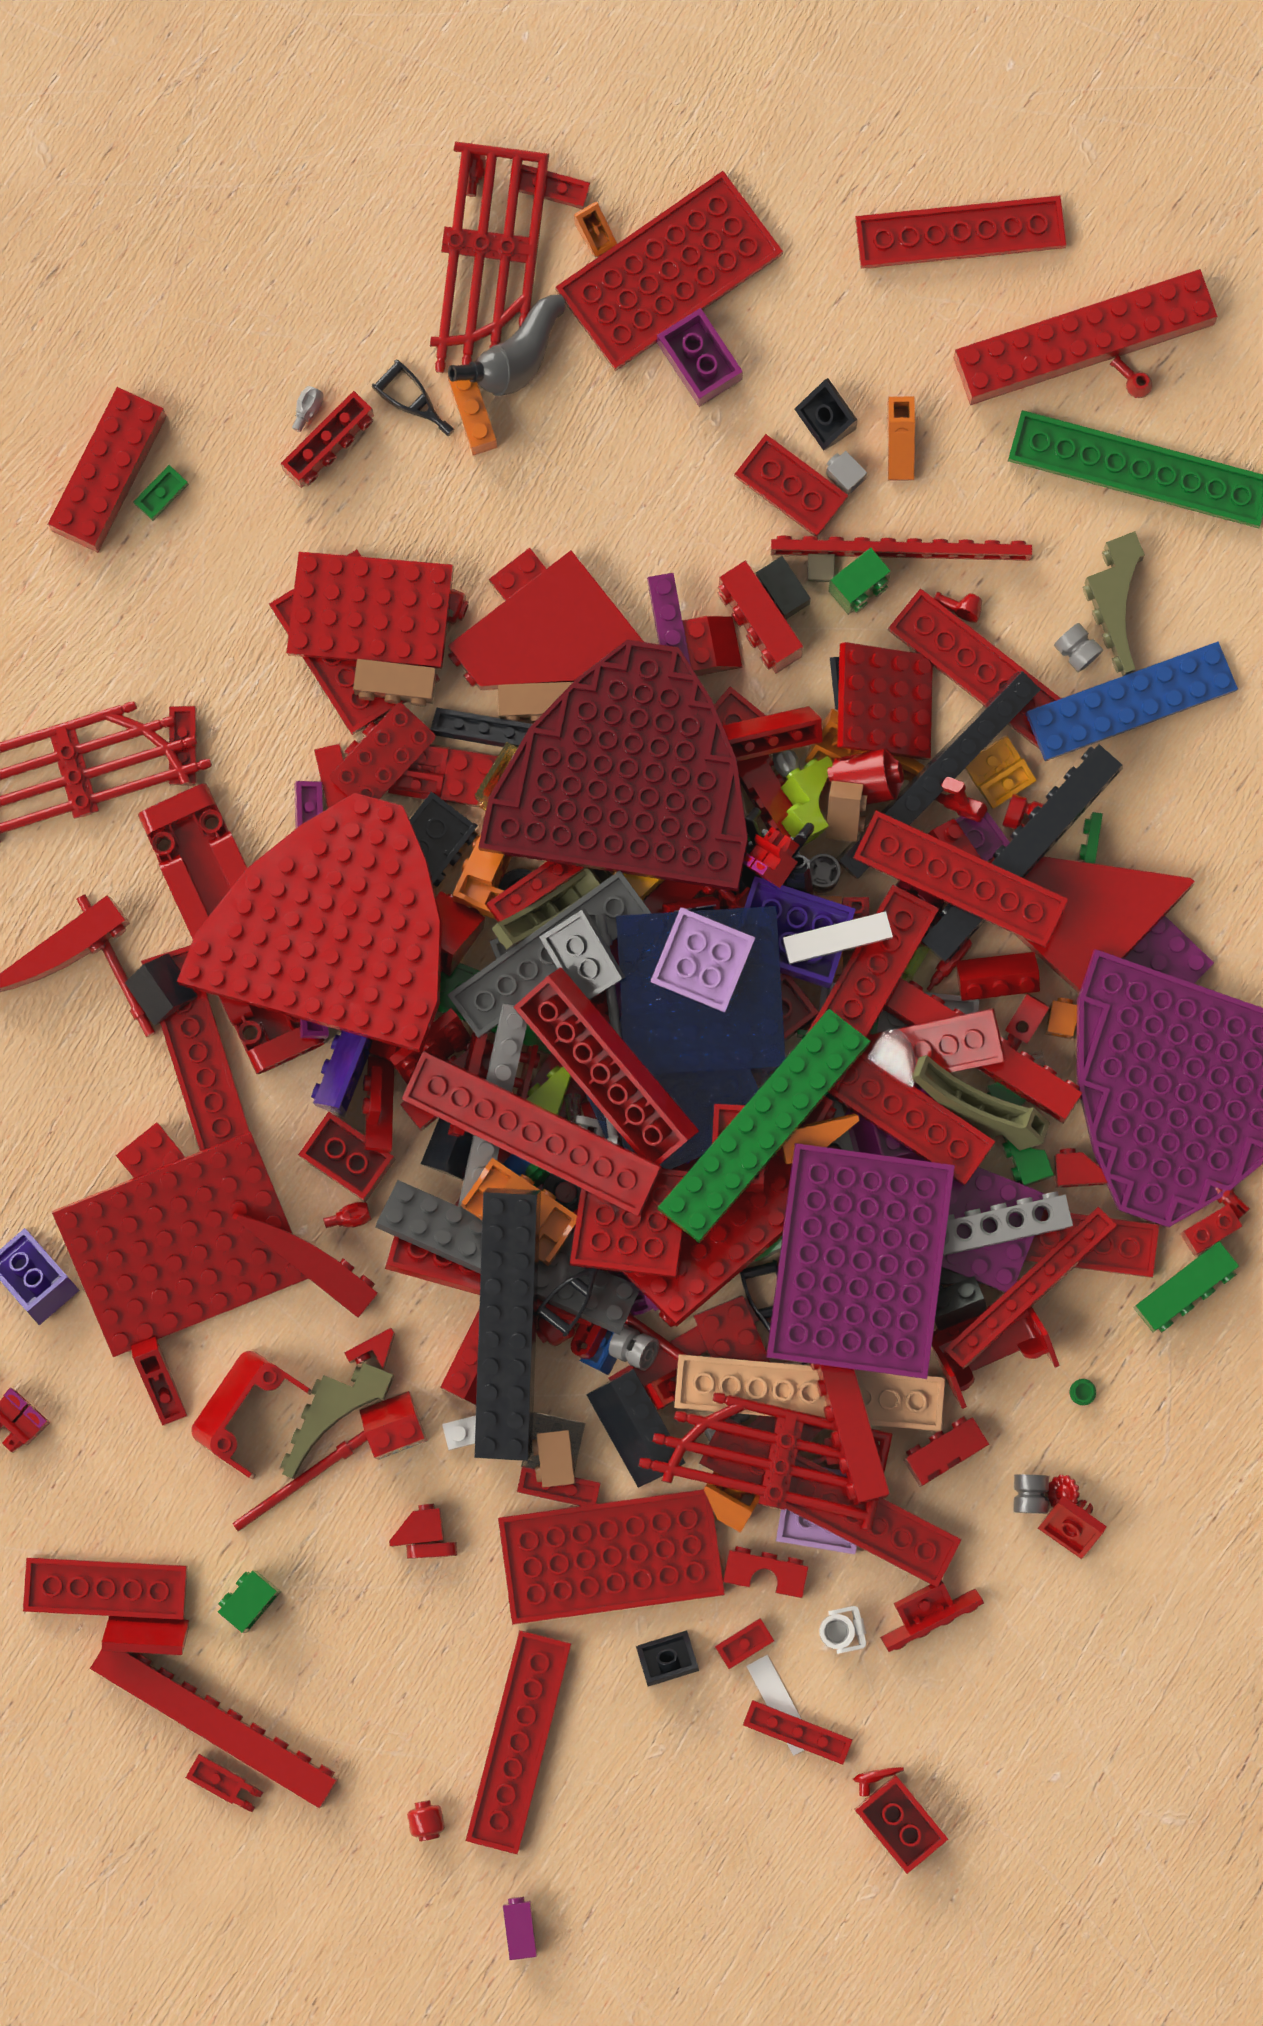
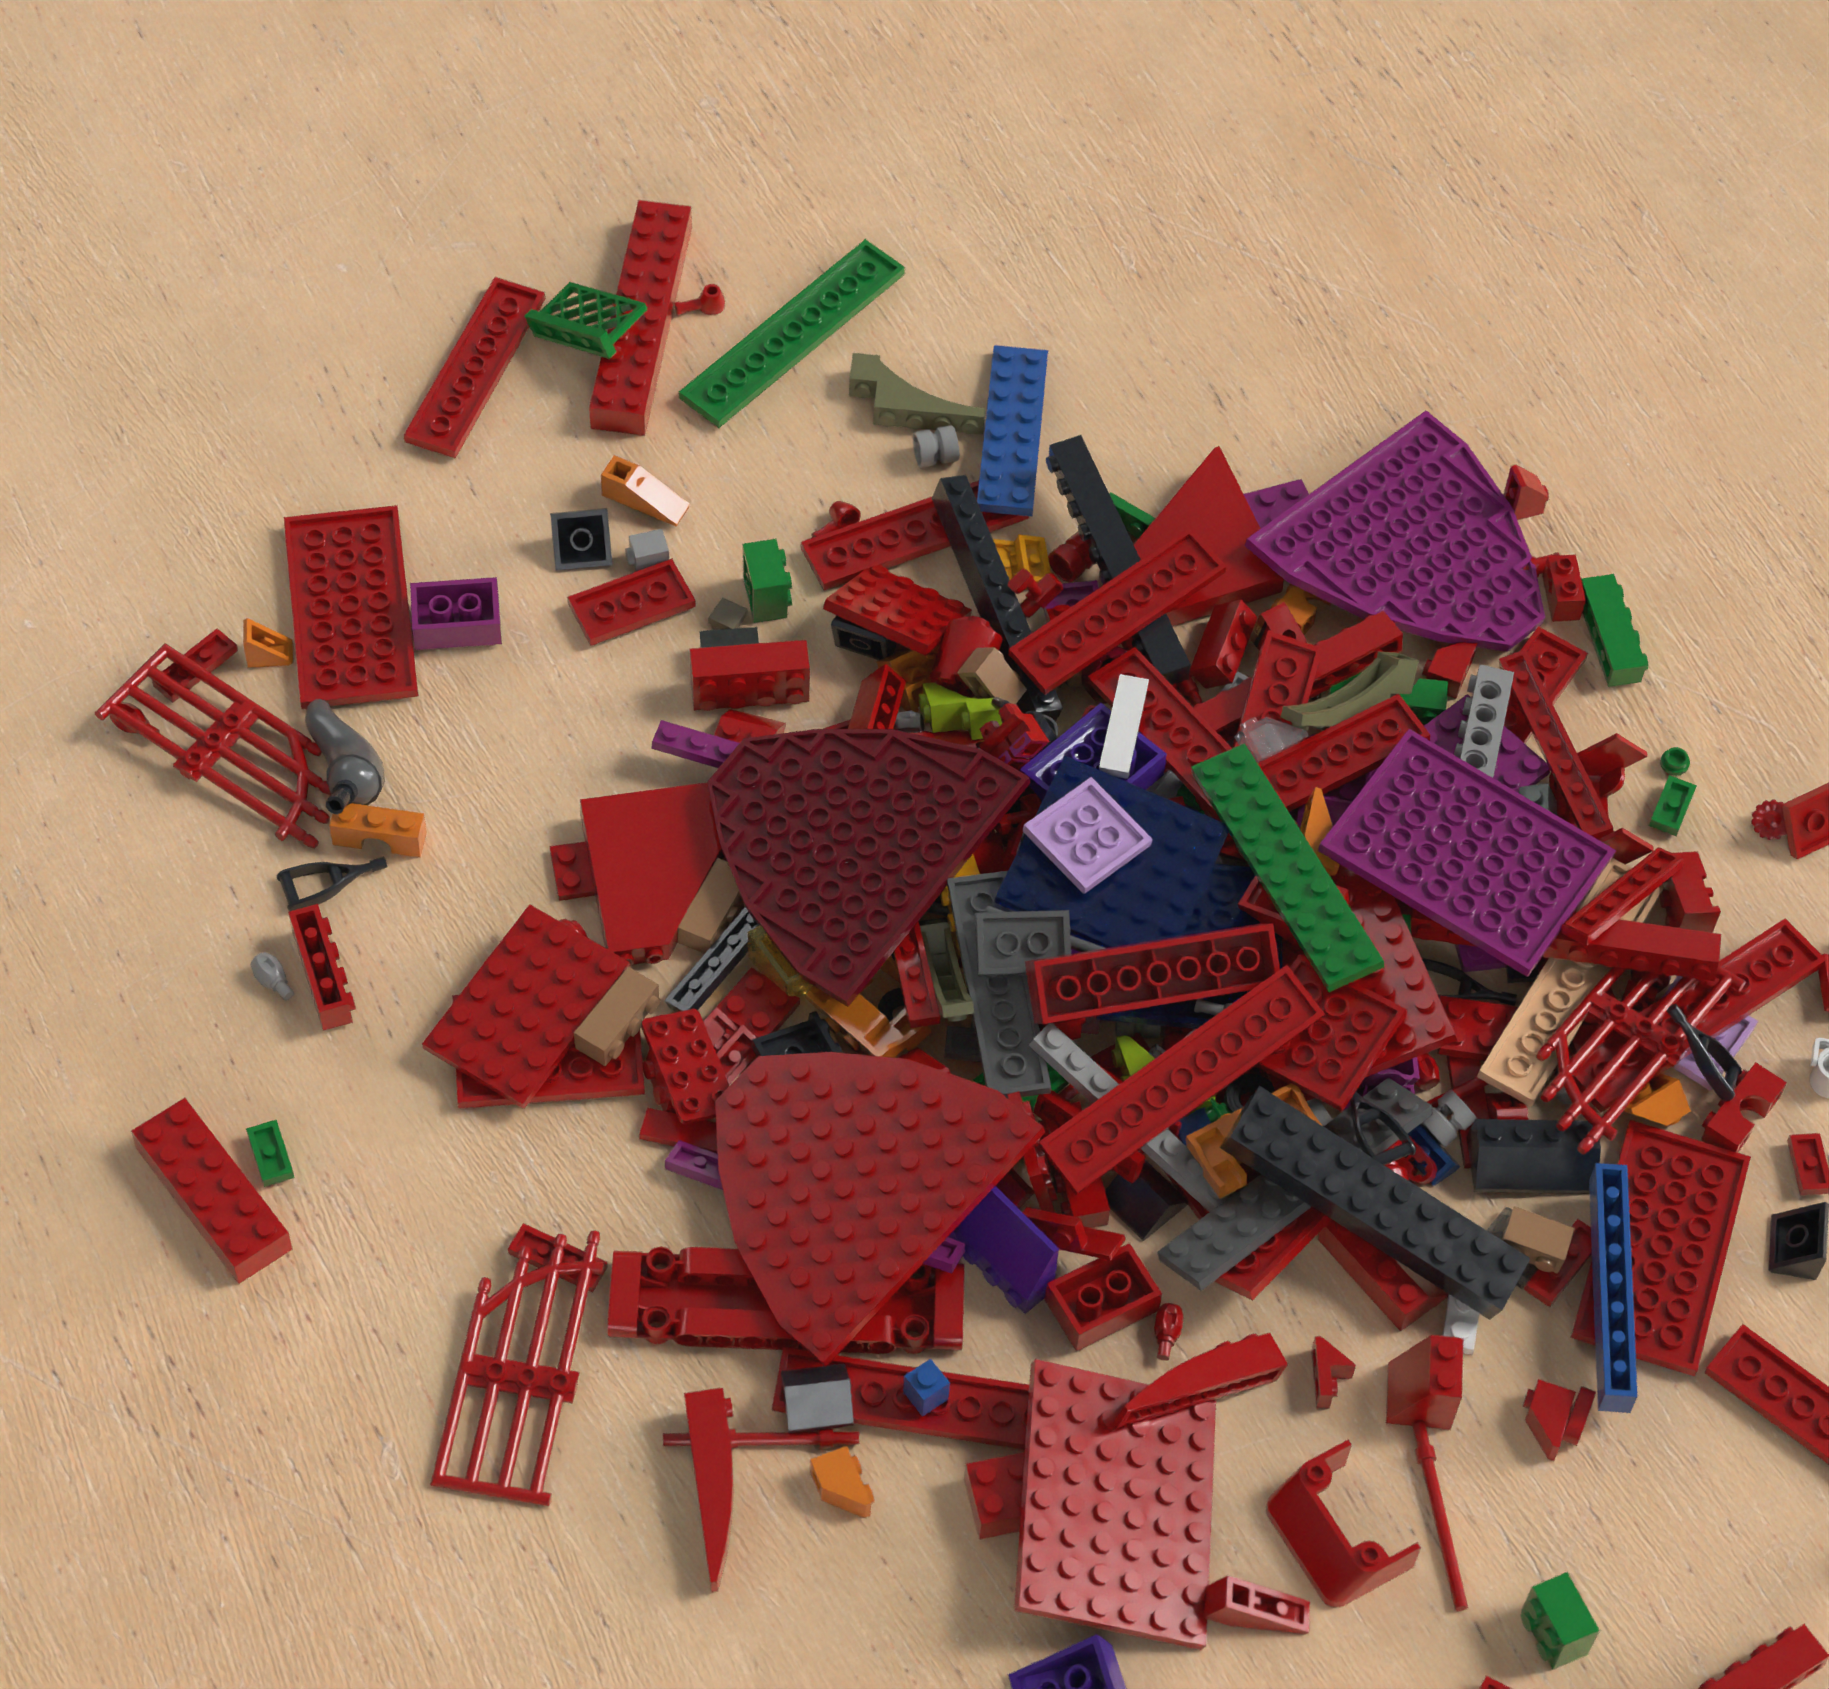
camera: 70 degrees left, 25 degrees down
(106, 1039) = (839, 1482): none -> orange slope
(202, 1064) = (926, 1387): none -> blue brick
(331, 1403) = (1373, 1444): olive arch -> none
(540, 1532) = (1613, 1288): none -> blue brick
(782, 1517) = (1701, 1045): none -> black piece
(893, 1401) = (1622, 896): none -> red tile
(910, 549) = (758, 530): red plate -> none
(1027, 287) = (577, 332): none -> green fence
(1031, 1493) = (1762, 843): flat silver wheel -> none
(1035, 1407) = (1672, 805): none -> green plate

